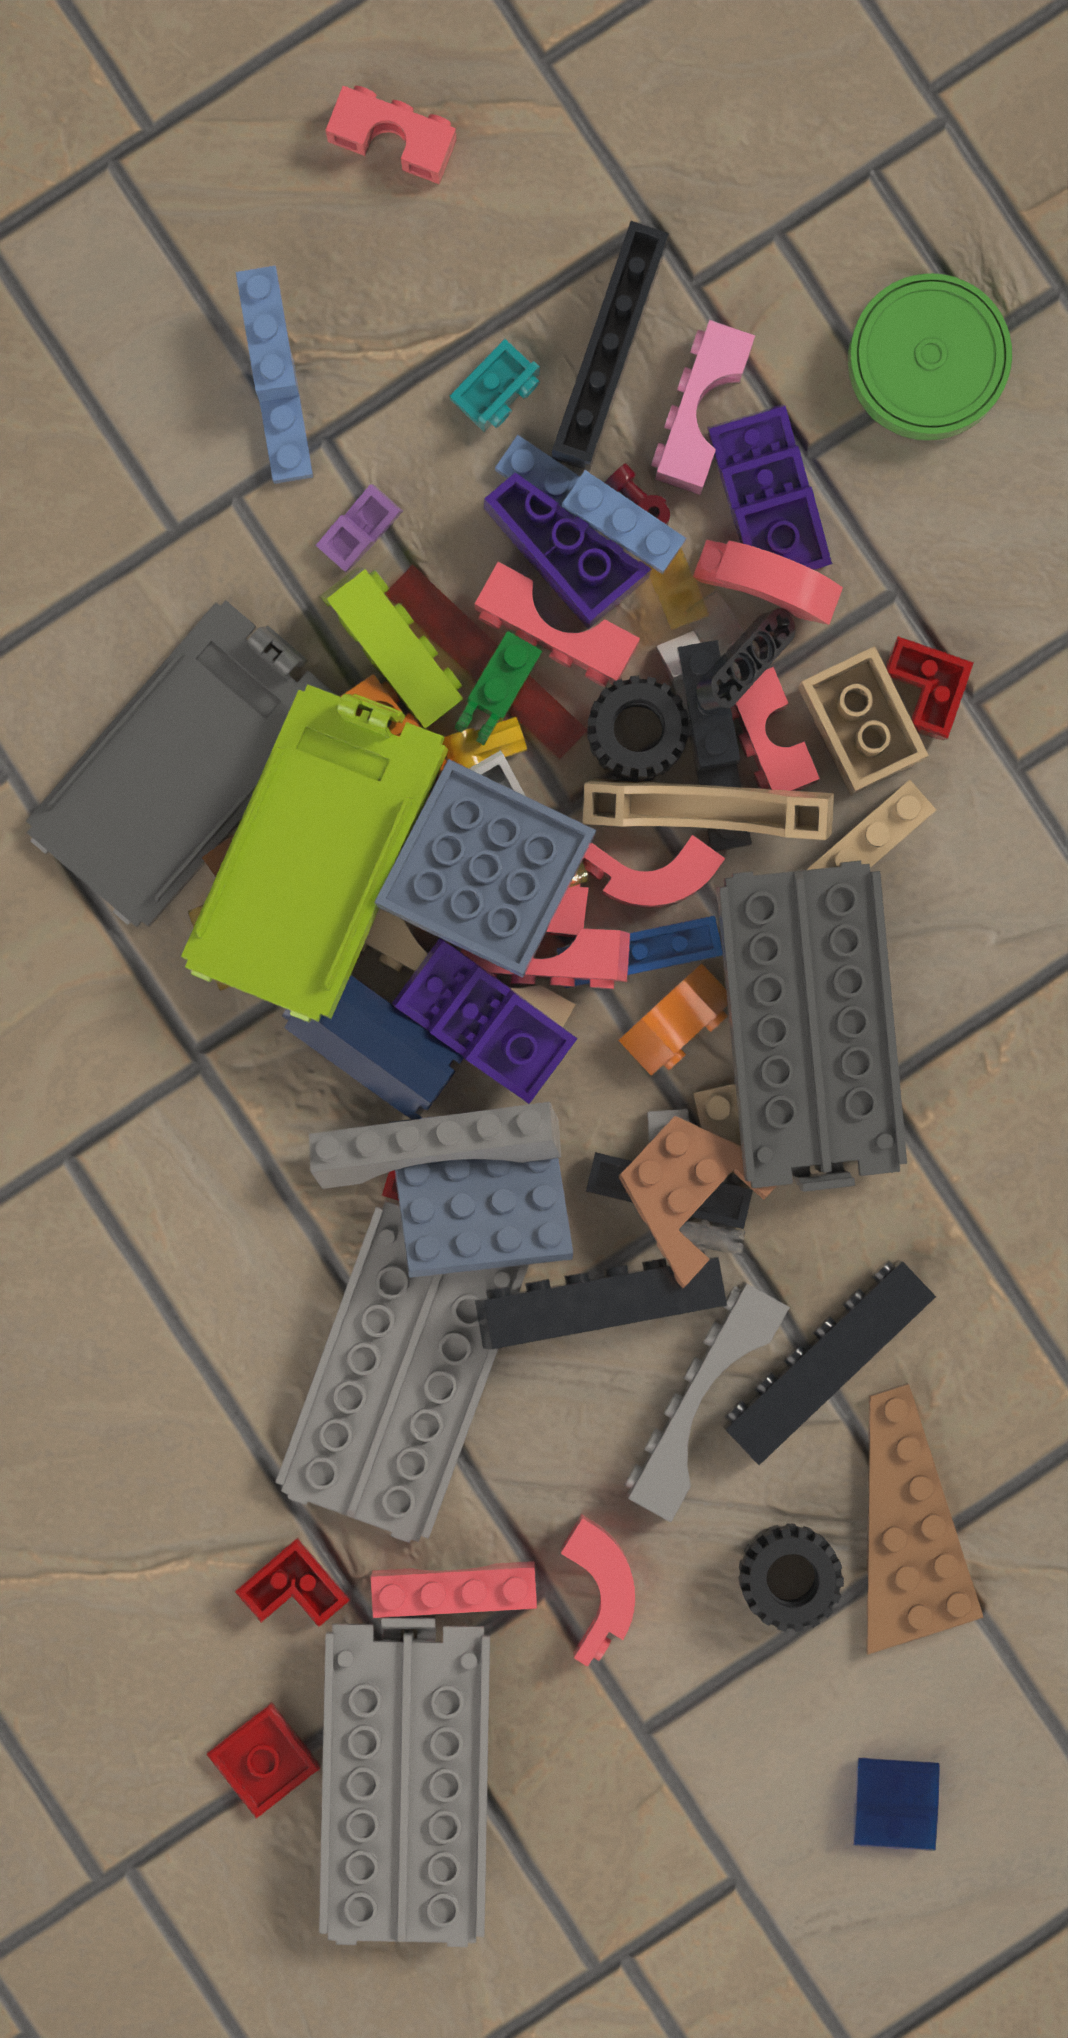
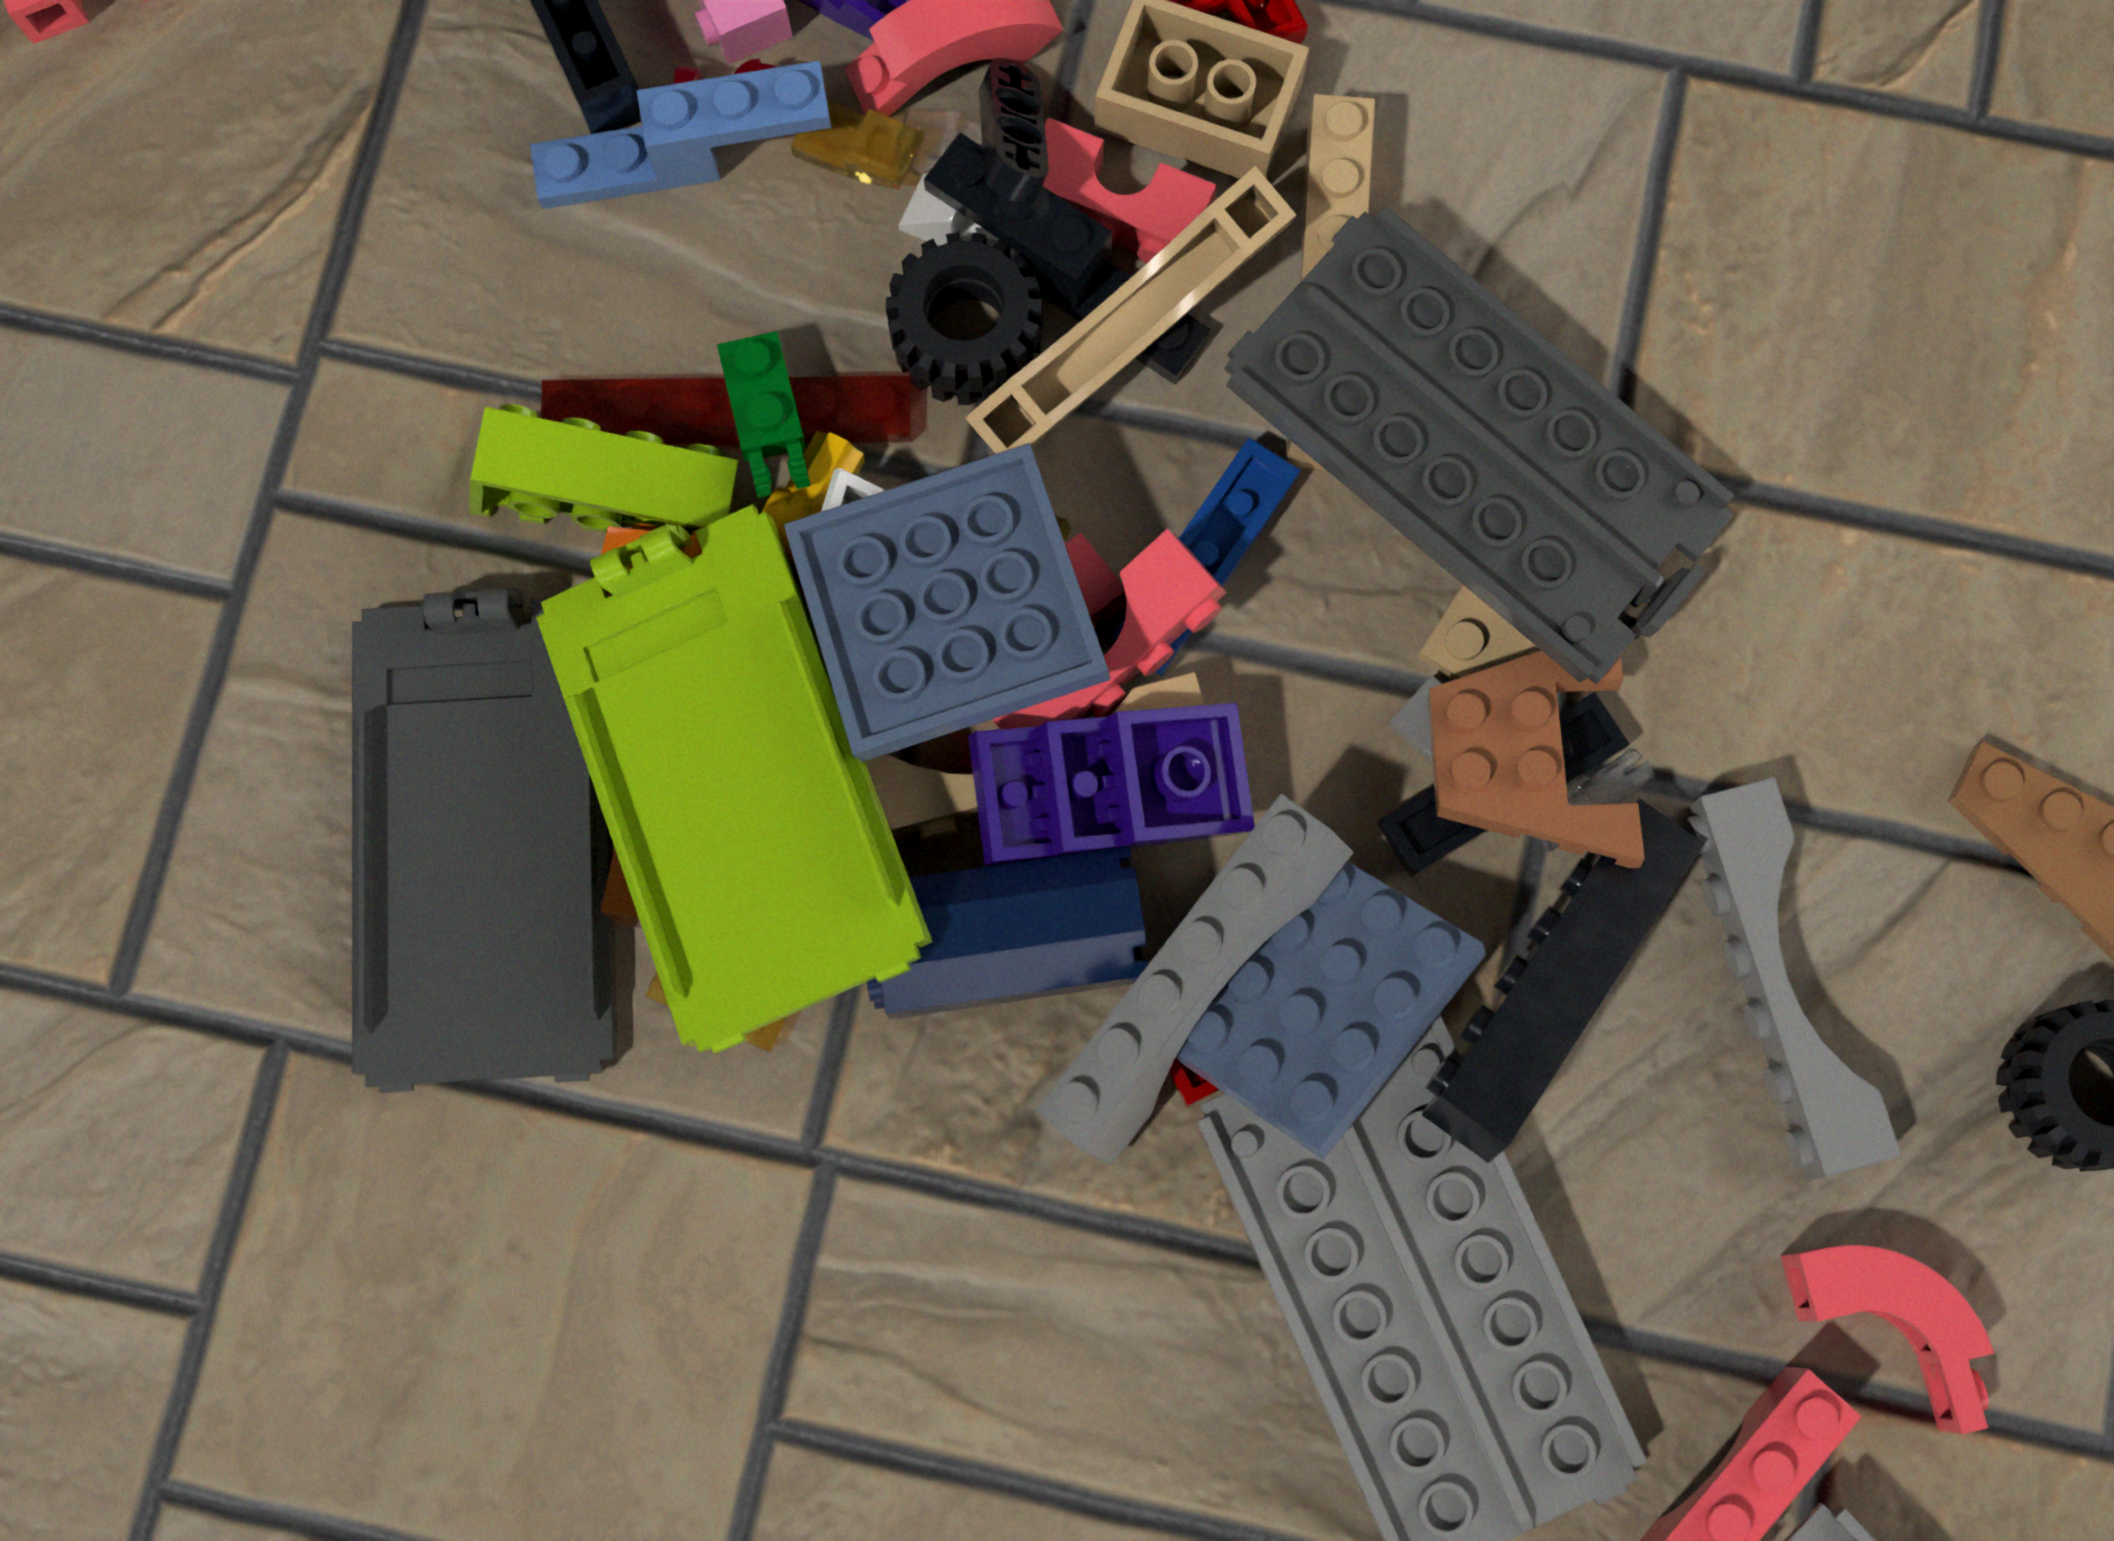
camera: 40 degrees left, 10 degrees down
(274, 374) = (188, 313): medium blue bracket -> none
(359, 528) = (445, 398): medium lavender slope -> none
(496, 385) = (456, 115): teal bracket -> none
(571, 556) = (696, 208): dark purple wedge -> none
(600, 651) = (837, 285): coral arch -> none
(659, 887) = (1155, 469): coral arch -> none
(676, 1020) = (1322, 588): orange brick -> none
(828, 1361) = (1872, 803): black brick -> none

